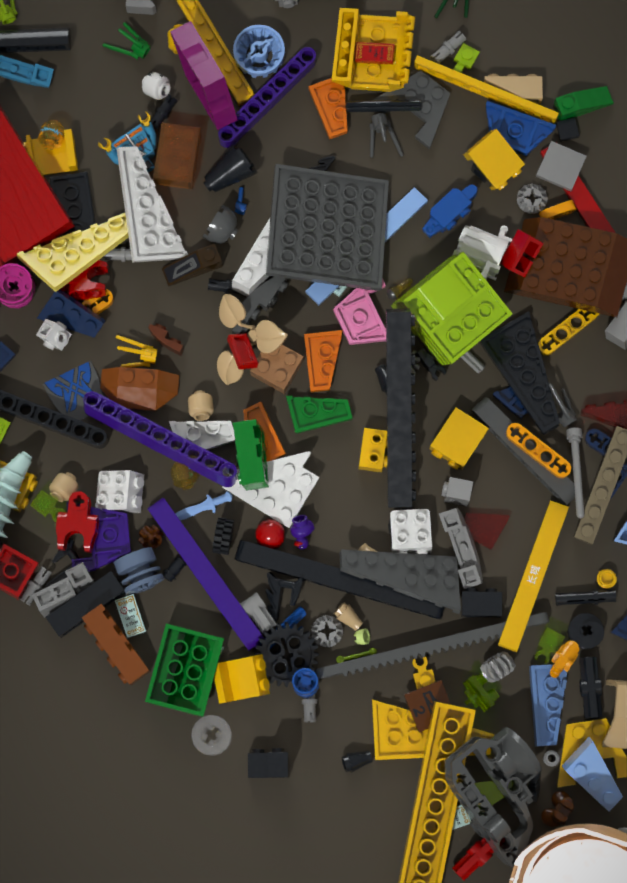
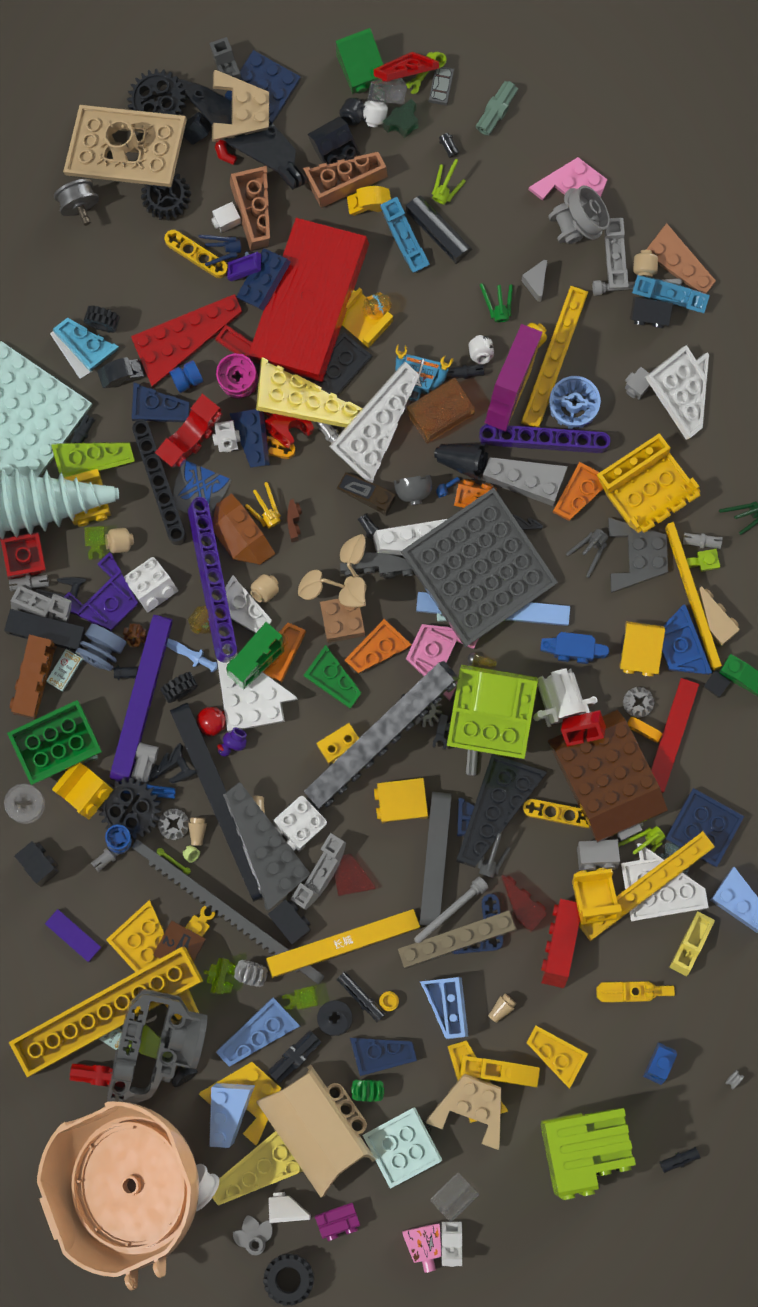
camera: 50 degrees right, 0 degrees up
(27, 358) = (191, 434): none -> red brick
(77, 521) = (101, 572): red piece -> none
(242, 351) = (329, 584): red tile -> none
(261, 187) = (470, 491): none -> orange bracket
(287, 136) = (526, 478): none -> light grey wedge
(349, 783) = (73, 935): none -> dark purple tile
(355, 761) = (94, 926): black cone -> none
(374, 53) = (647, 489): red tile -> none
(383, 105) = (613, 530): black axle -> none
(457, 491) = (359, 832): light grey brick -> none
(540, 448) = (441, 867): light orange beam -> none
(555, 758) = (211, 1066): light grey pin -> none
(561, 166) = (681, 702): light grey tile -> none
(563, 807) = (184, 1109): reddish brown piece -> none
(564, 658) = (299, 1018): light orange arm -> none

